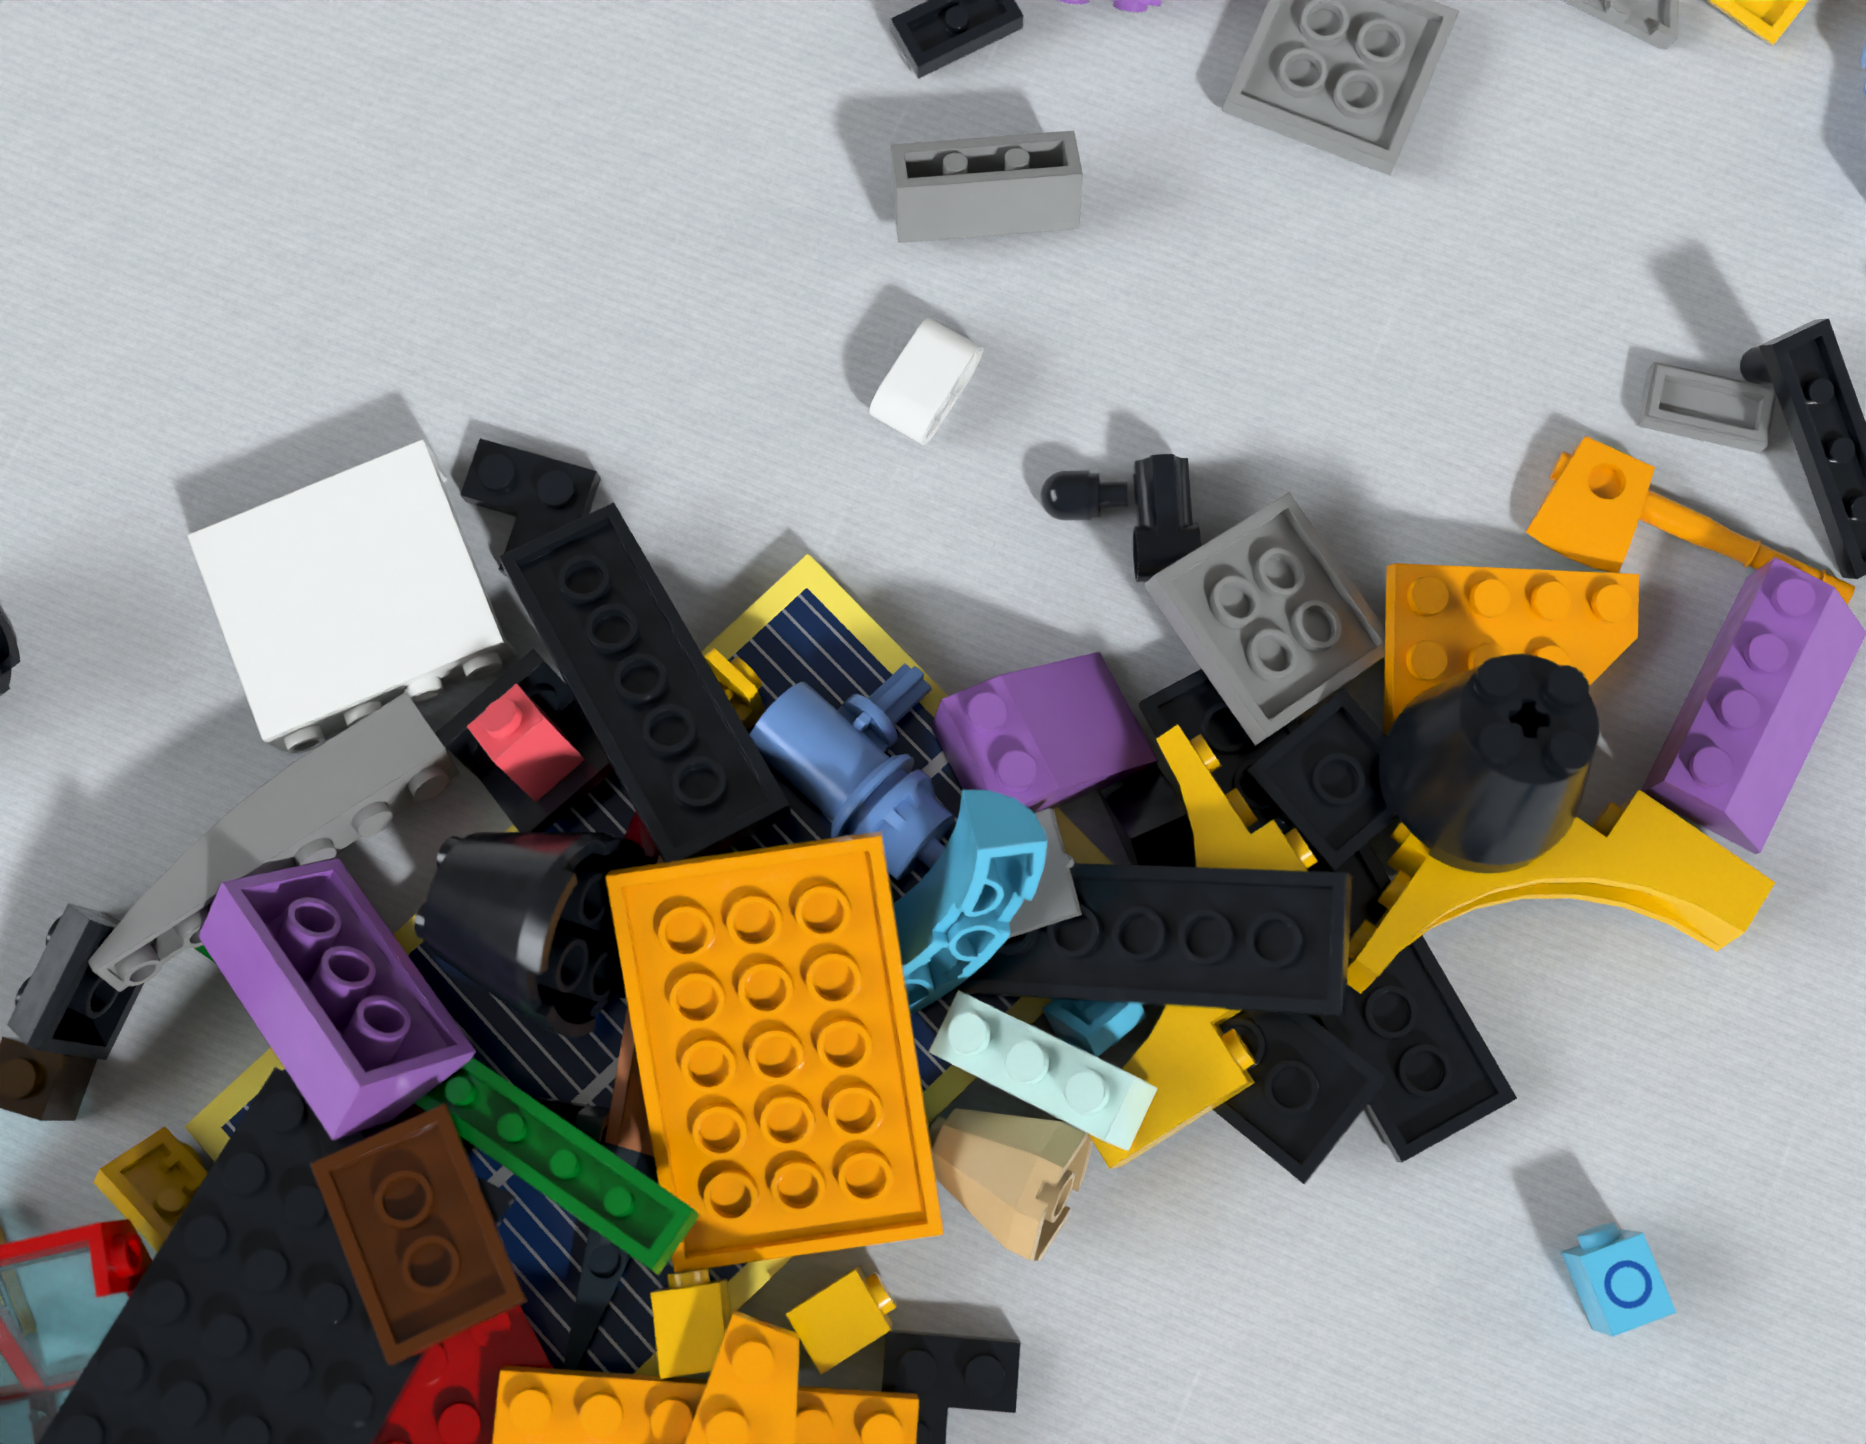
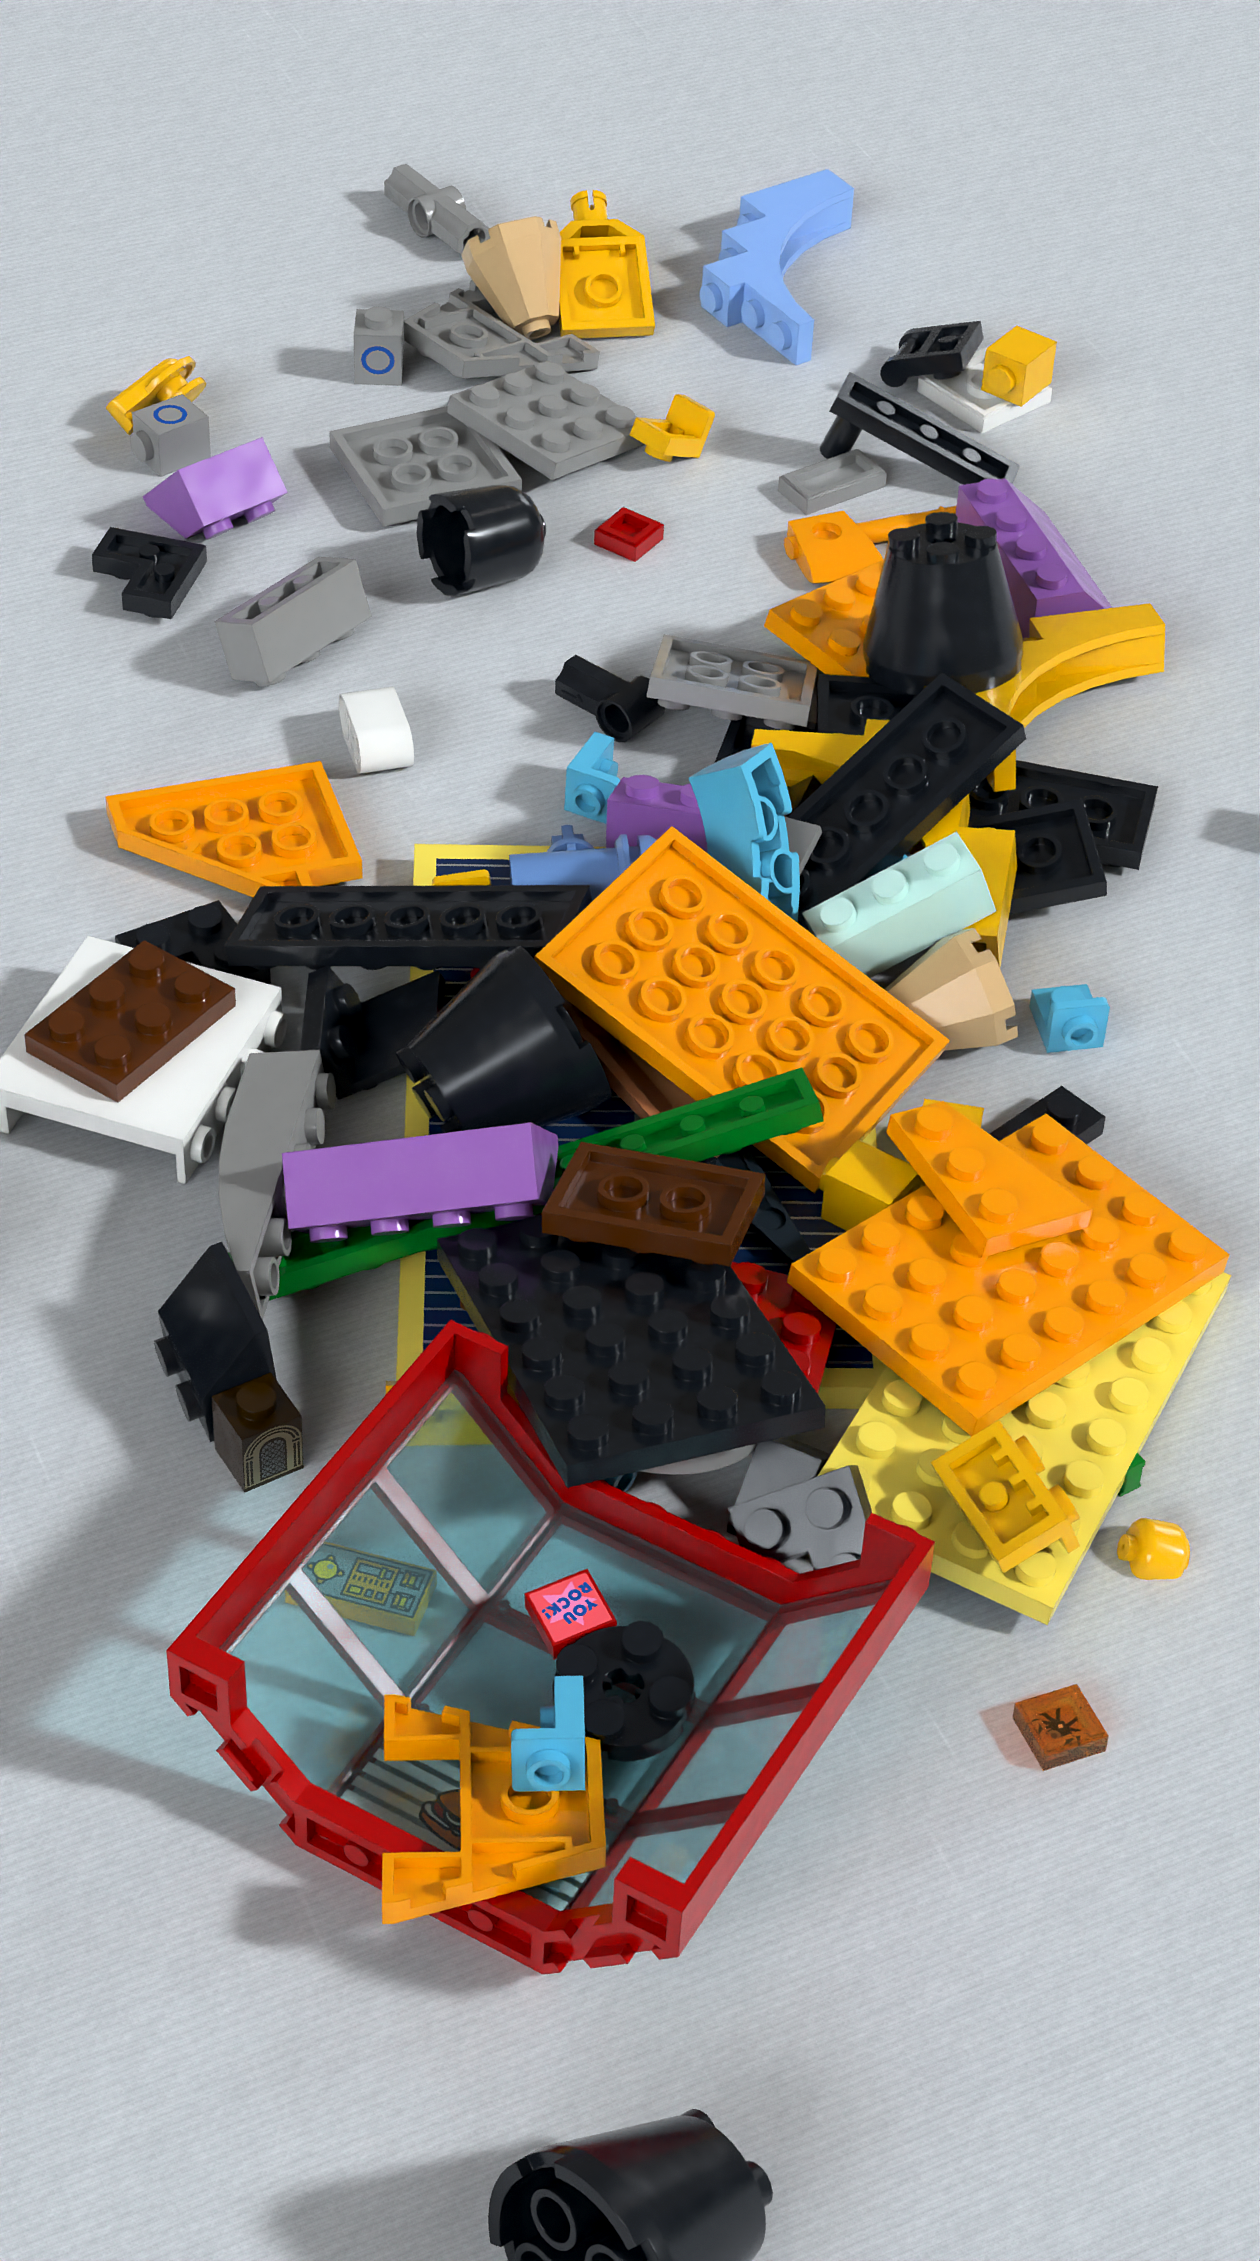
camera: 55 degrees left, 35 degrees down
(344, 575) = (130, 1020): none -> reddish brown plate
(525, 743) = (371, 1006): coral brick -> none
(701, 411) = (243, 829): none -> light orange wing
(1041, 605) = (591, 778): none -> medium azure bracket
(1080, 495) = (542, 722): black cylinder -> none
(1124, 1271) = (1069, 1017): none -> medium azure bracket
(1261, 225) = (480, 537): none -> black cylinder
(1432, 313) = (628, 534): none -> red tile
(1514, 100) = (547, 419): none -> light grey plate
(1616, 218) = (679, 434): none -> yellow bracket

